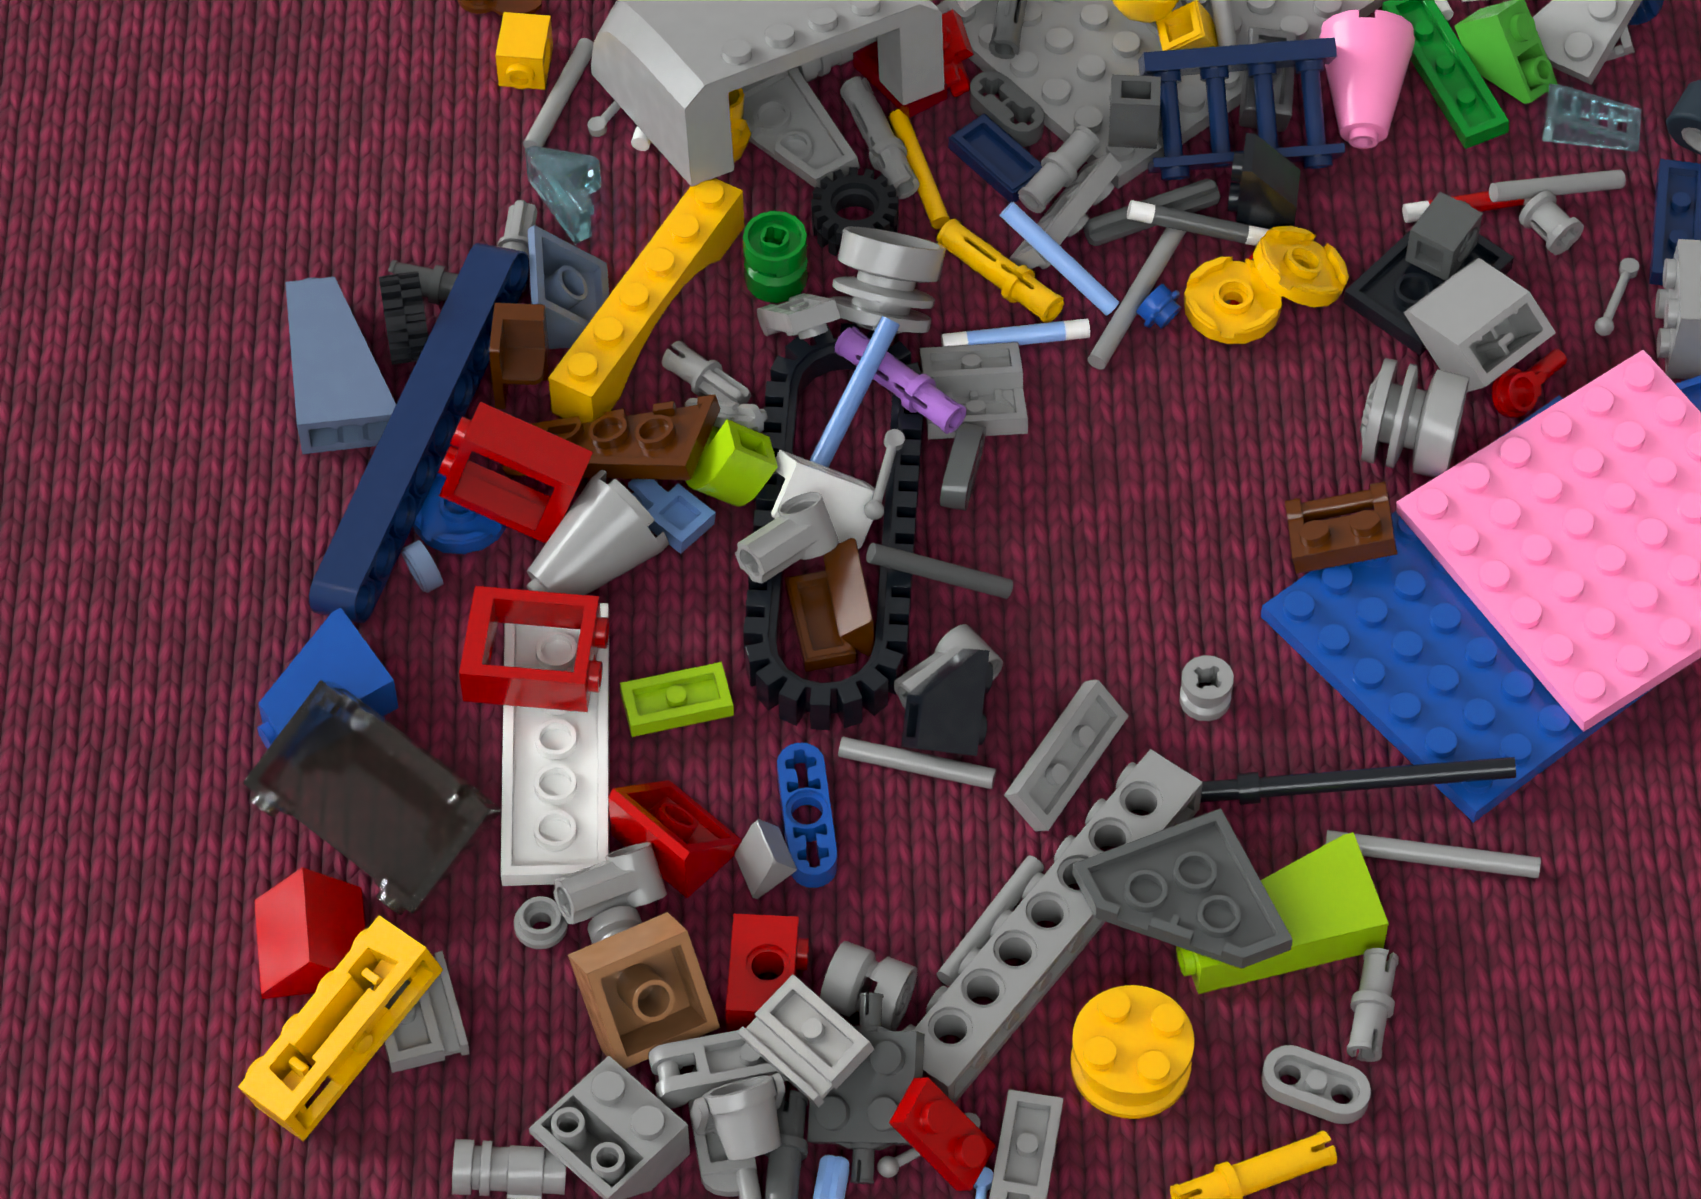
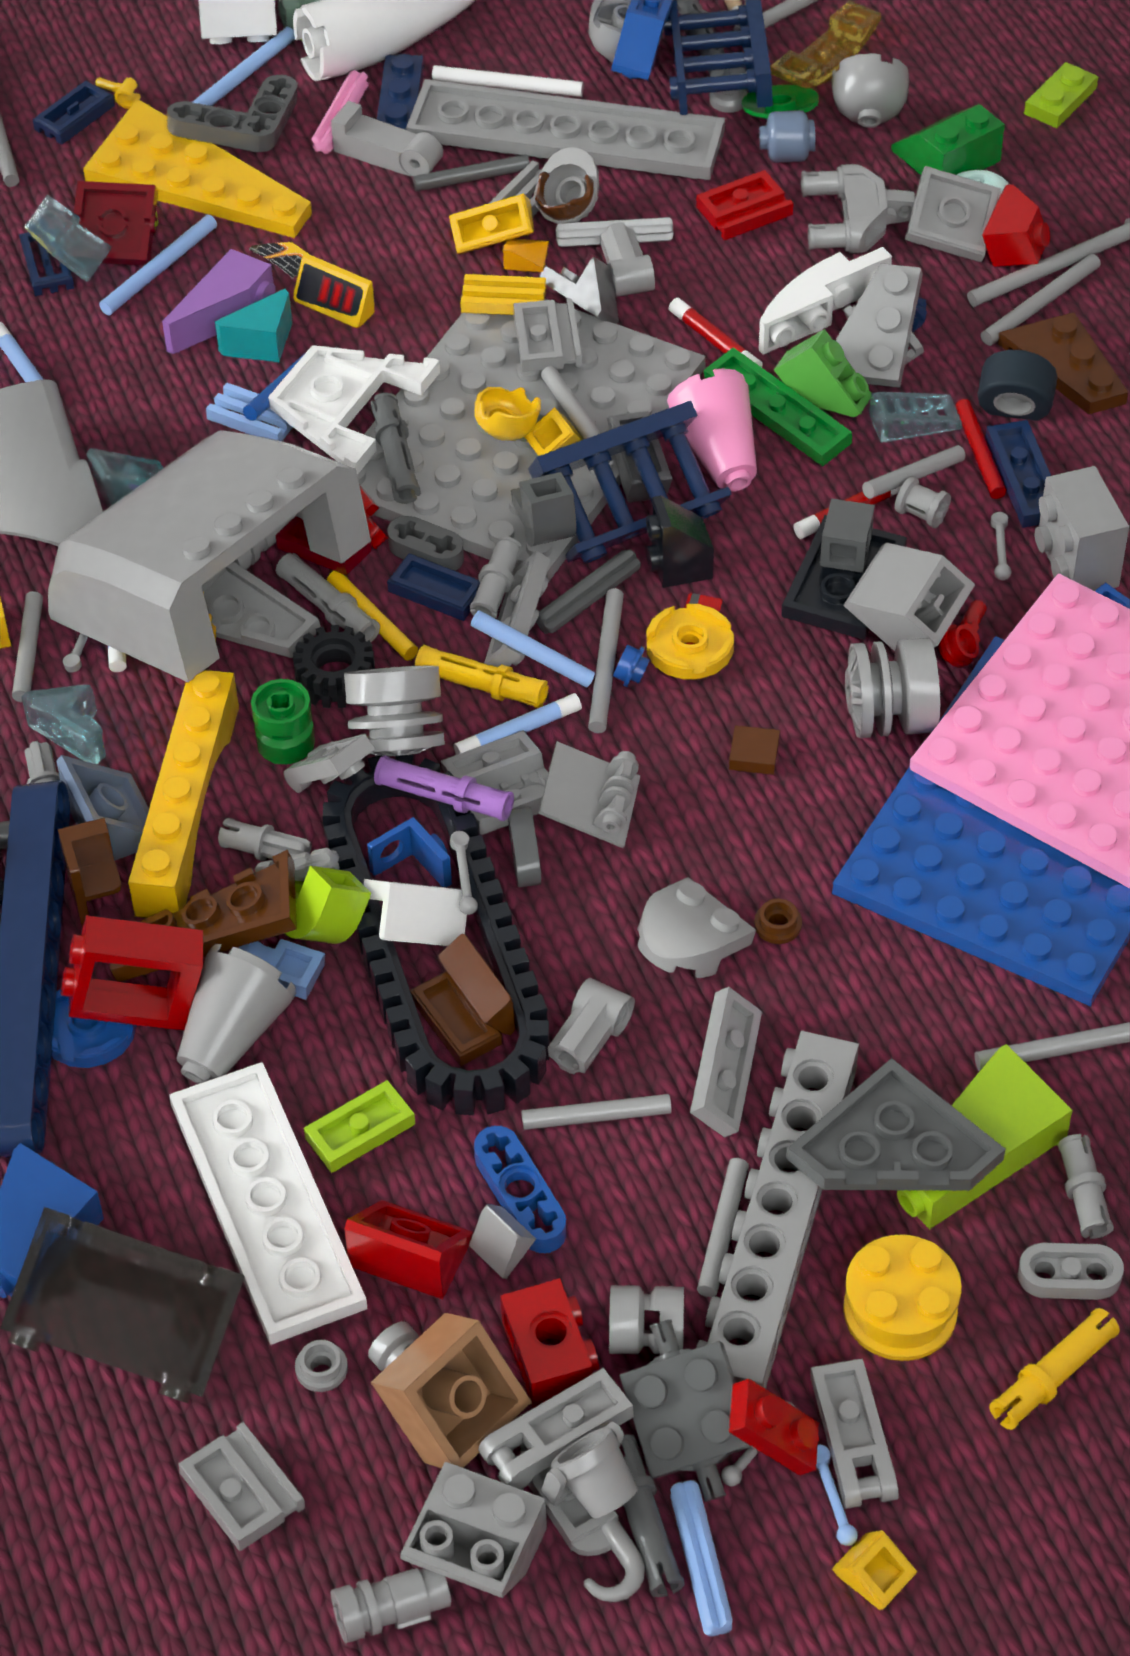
camera: 20 degrees left, 5 degrees down
(305, 931) = (110, 1452): red slope -> none
(340, 1027) = (143, 1594): yellow brick -> none
(422, 566) = (76, 1084): sand blue tile -> none
(530, 686) = (226, 1155): red window -> none
(624, 879) = (386, 1299): light grey piece -> none
(797, 534) = (413, 945): light grey piece -> none
(806, 1040) = (623, 1384): light grey plate -> none
(854, 392) = (409, 809): medium blue bar -> none
(865, 437) = (412, 841): none -> blue bracket
(939, 570) = (546, 939): dark grey bar -> none
(948, 706) = (610, 1050): black slope -> none
(1055, 431) = (591, 792): none -> light grey hinge
(1093, 607) = (690, 929): none -> light grey slope
(1187, 617) = (780, 912): none -> reddish brown plate
(1195, 223) = (634, 588): dark grey bar -> none
(1209, 701) = (824, 977): light grey wheel -> none
(1248, 438) = (754, 749): none -> reddish brown tile
(1250, 787) = (896, 1037): black bar -> none
(1300, 267) = (734, 598): yellow plate -> none
(1345, 538) = (876, 805): reddish brown plate -> none
(1646, 181) = (980, 449): none -> red bar

